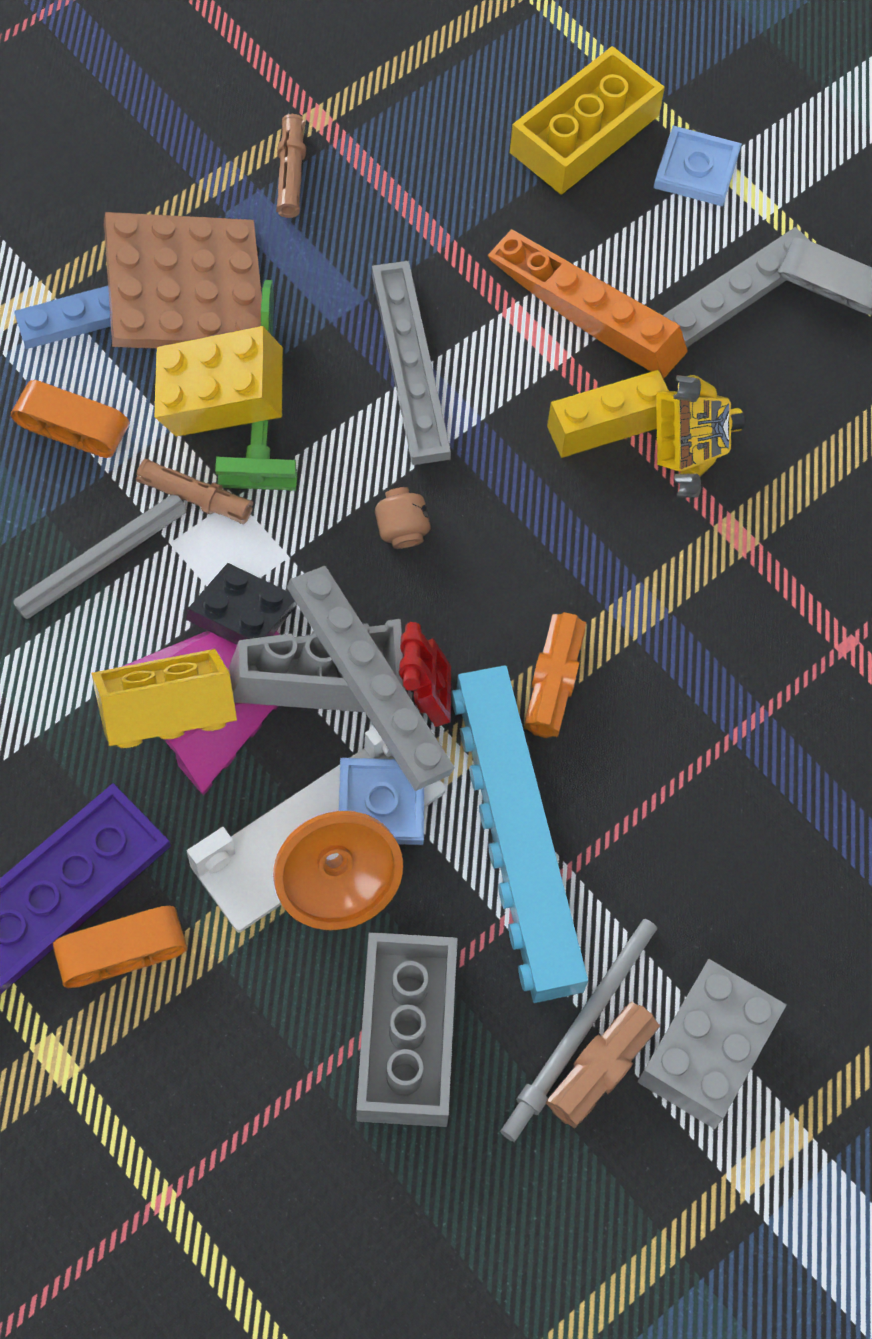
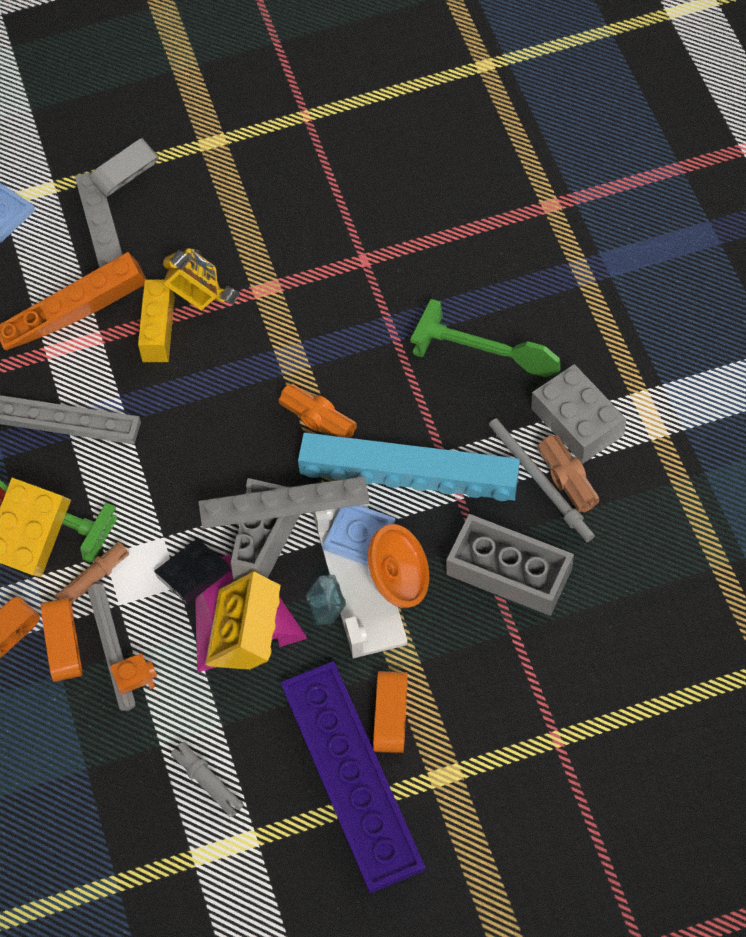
camera: 60 degrees left, 5 degrees down
(62, 596) = (133, 673): none -> orange bracket
(83, 491) = (61, 639): none -> orange beam
(258, 795) = (326, 600): none -> clear light blue piece
(402, 518) = (172, 459): nougat head -> none
(428, 672) = (288, 476): red plate -> none
(765, 775) = (530, 356): none -> bright green piece

